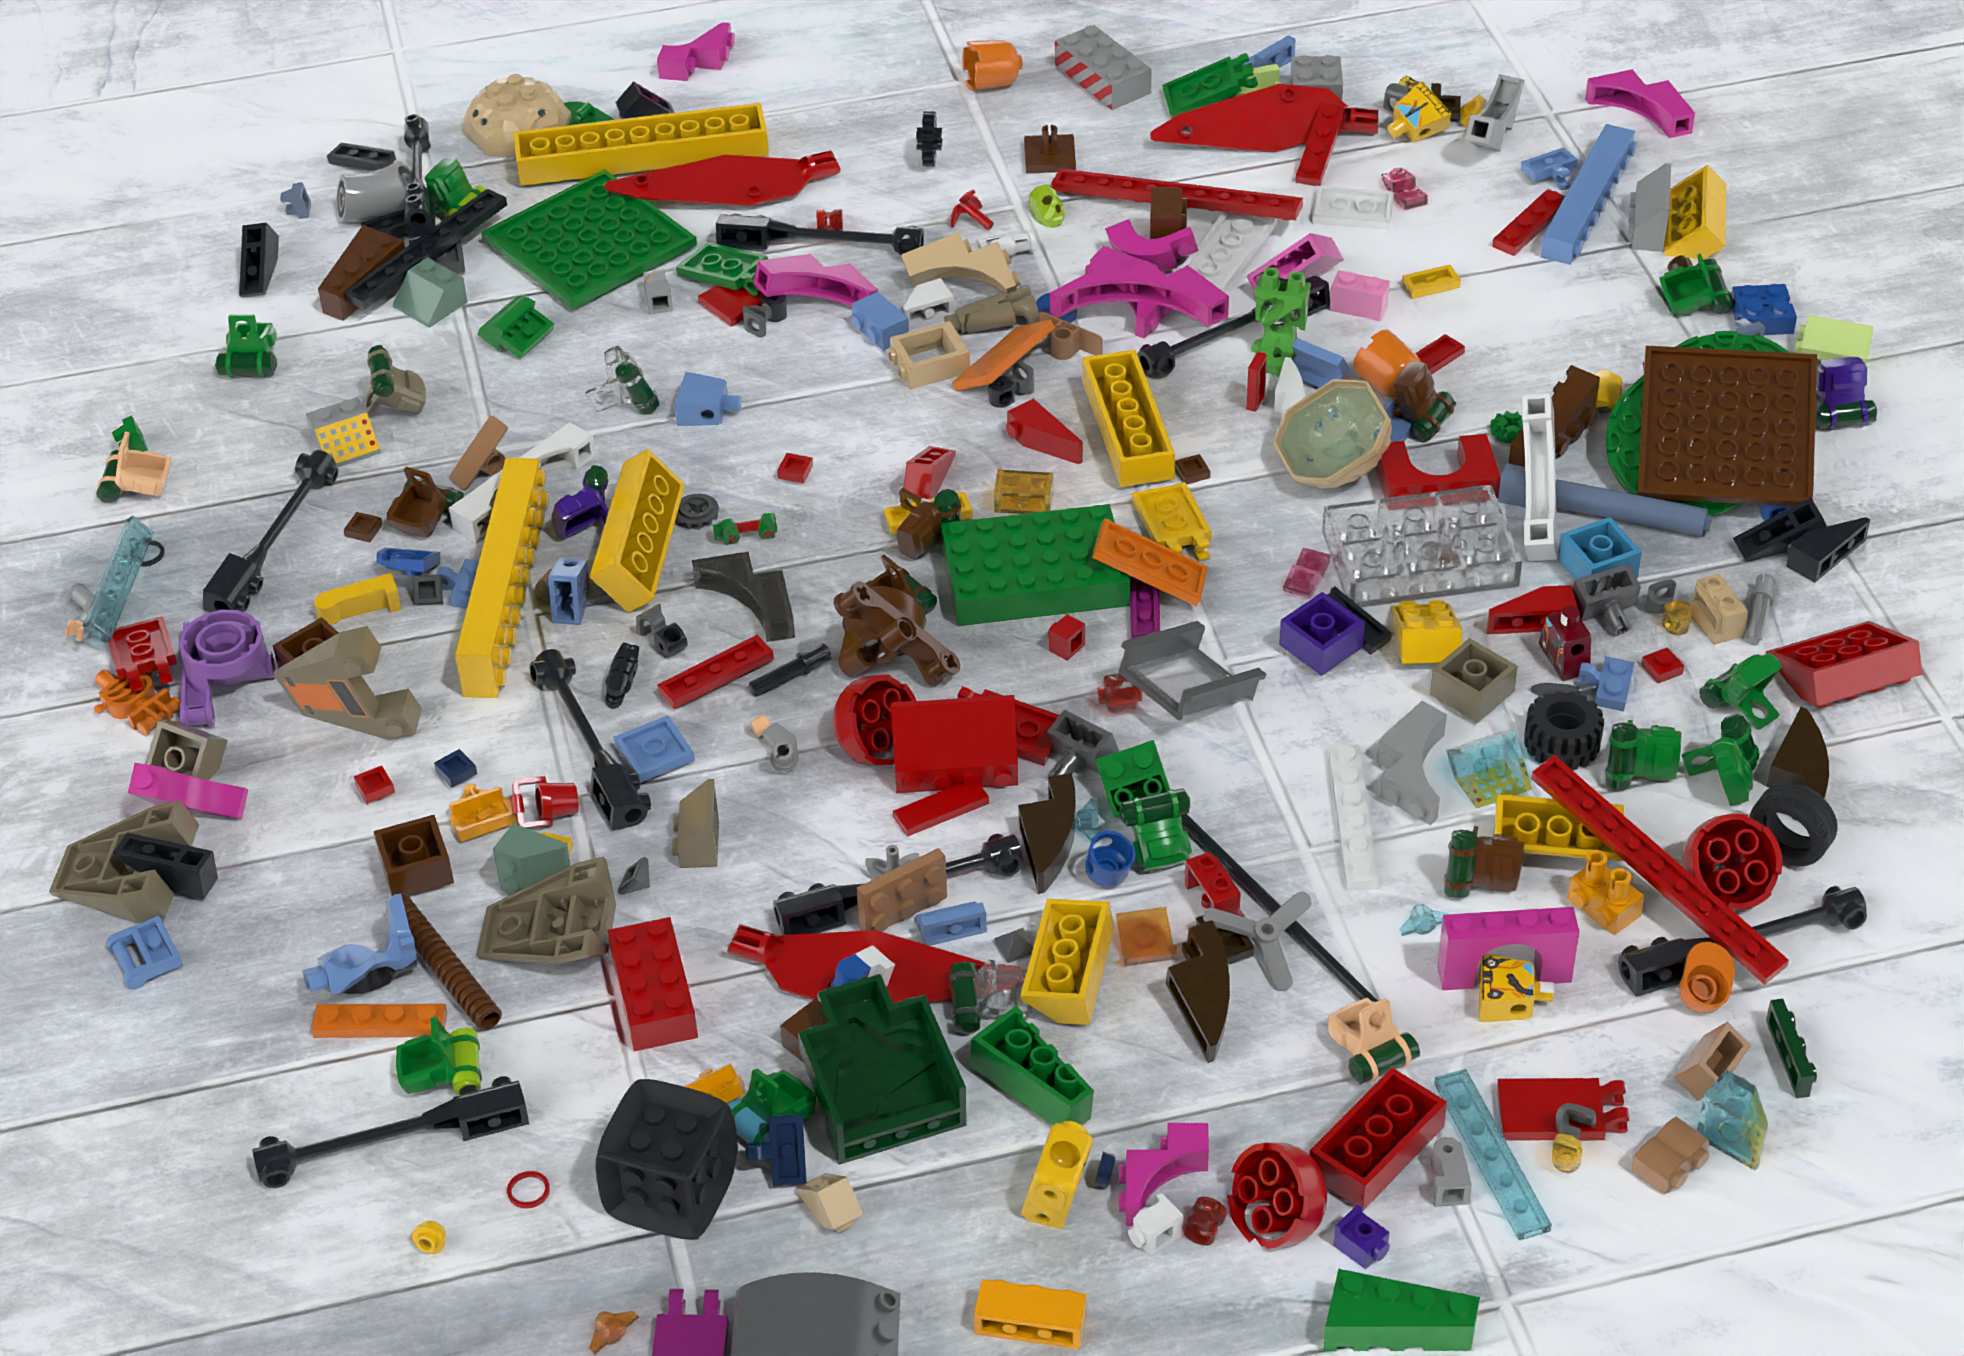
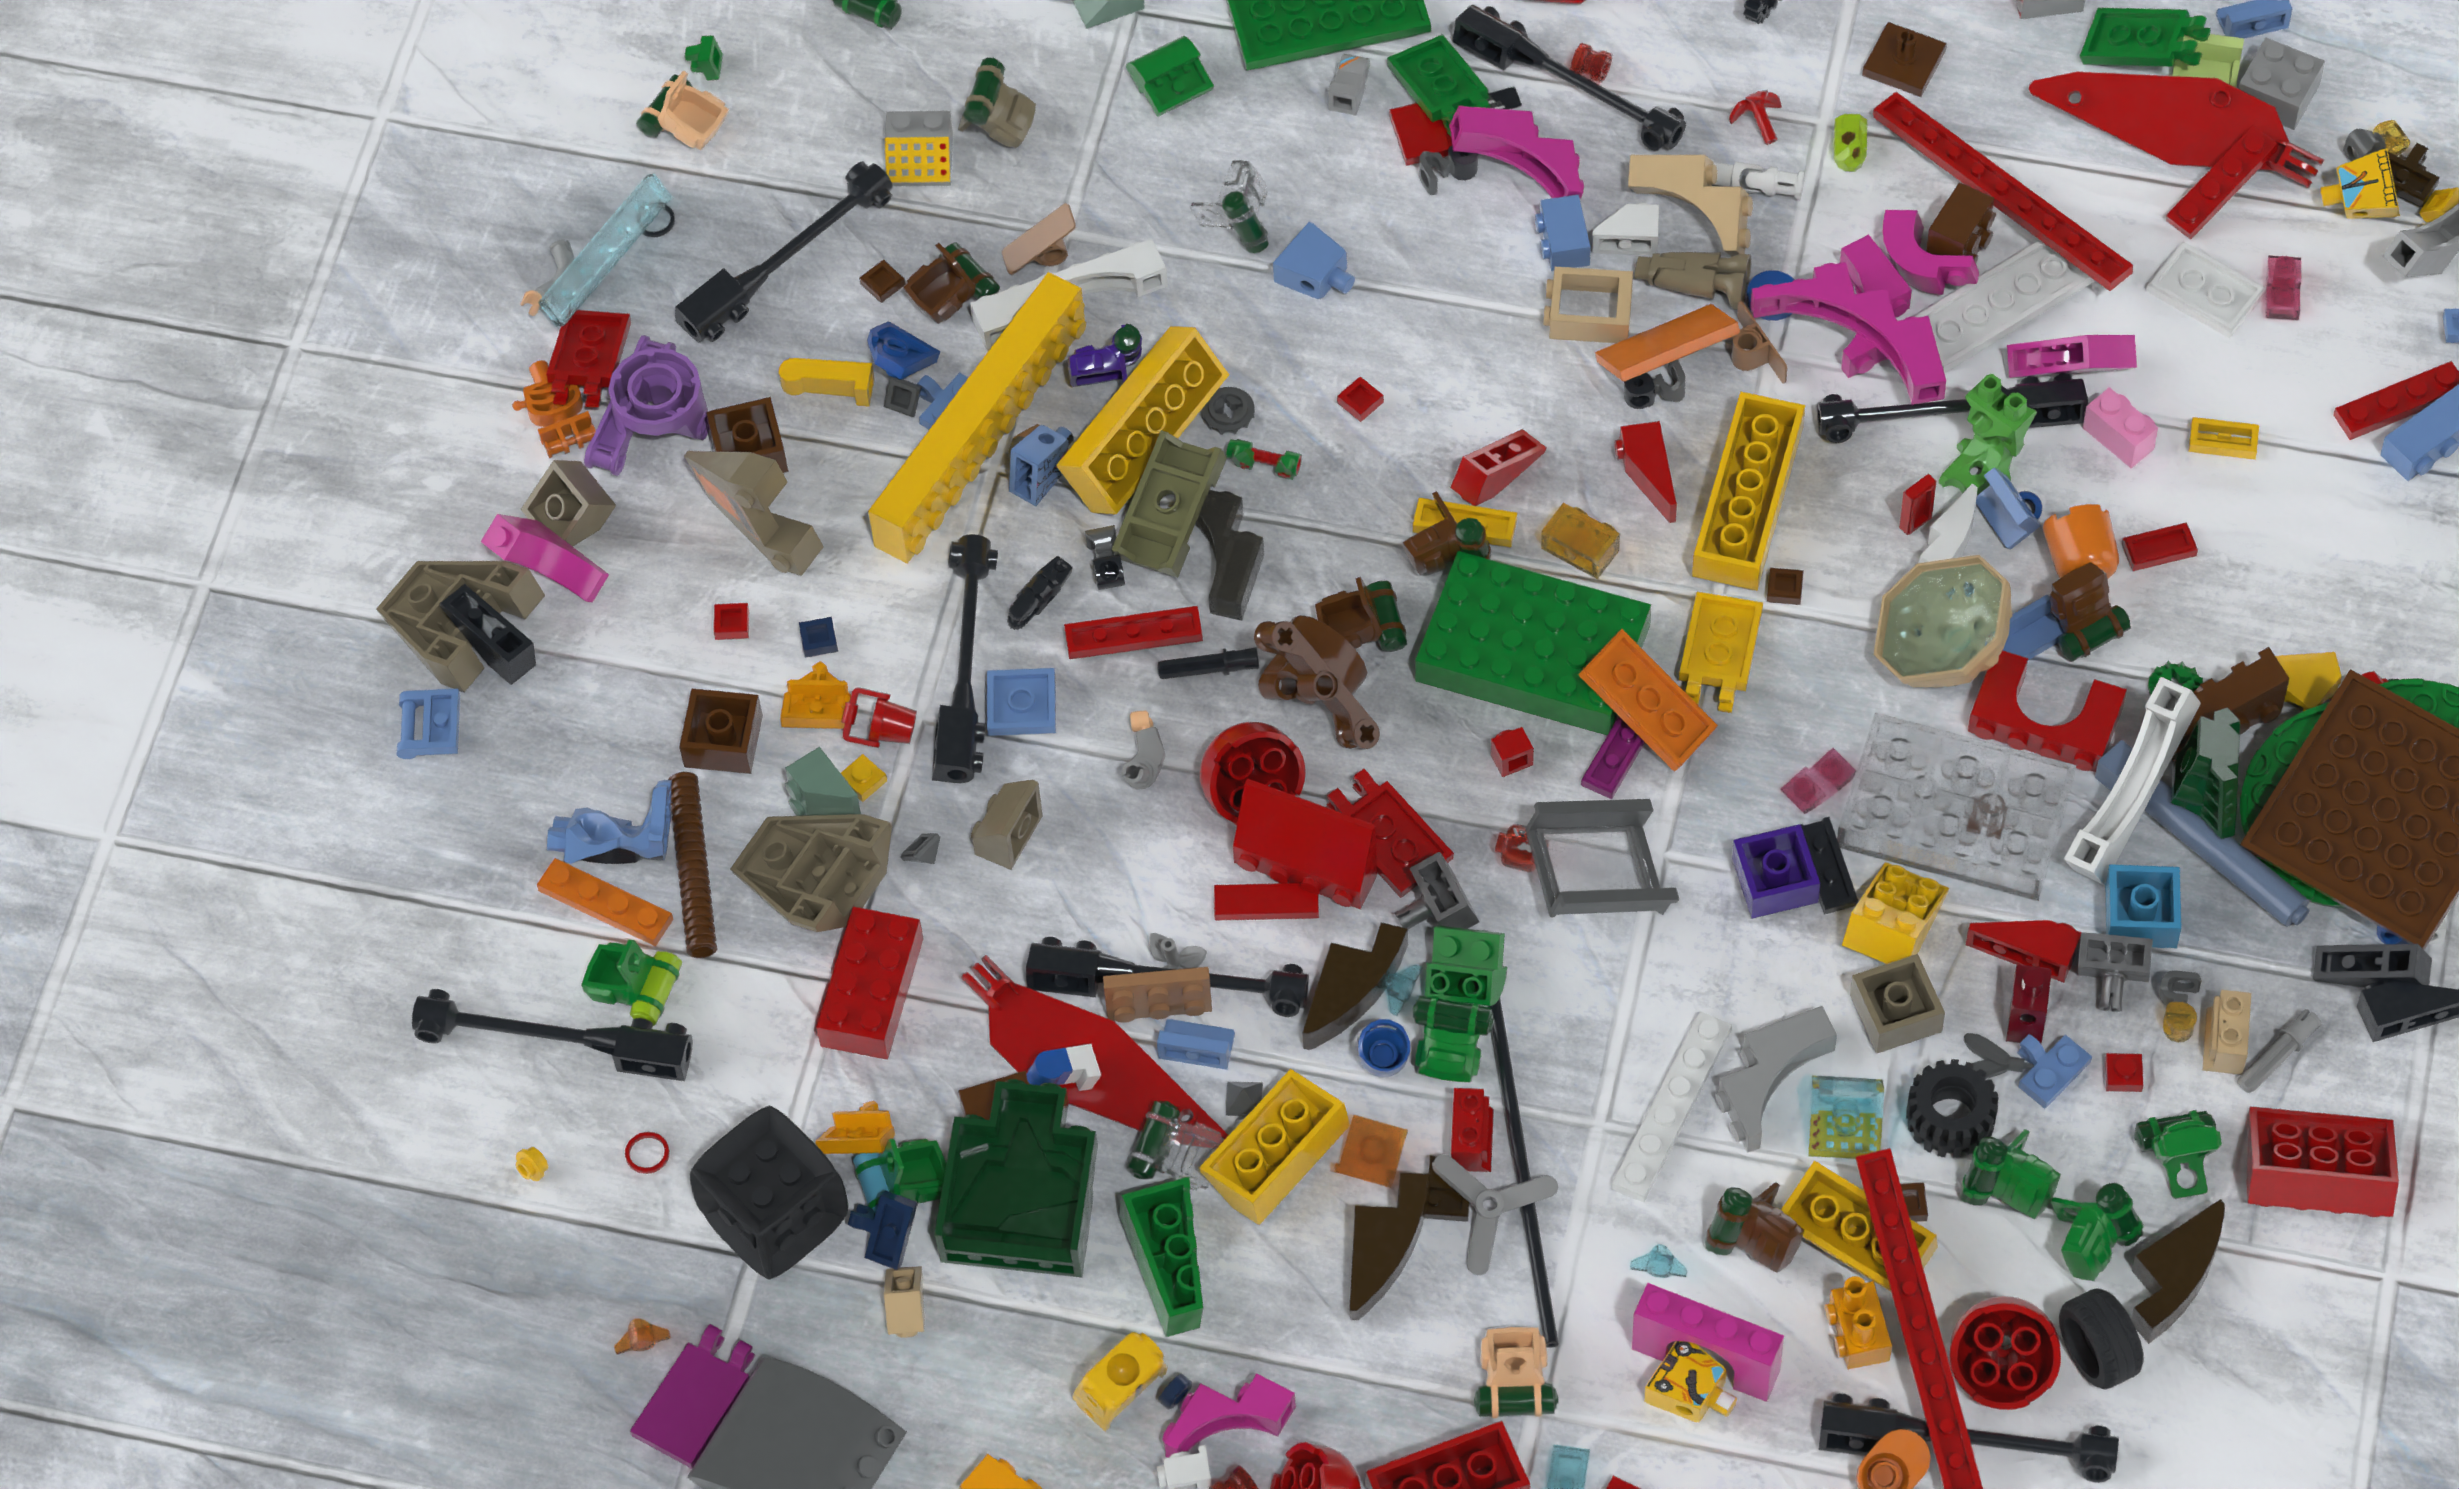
camera: 30 degrees right, 15 degrees up
(699, 599) = (1157, 535): none -> olive piece
(1589, 452) = (2208, 772): none -> dark green slope

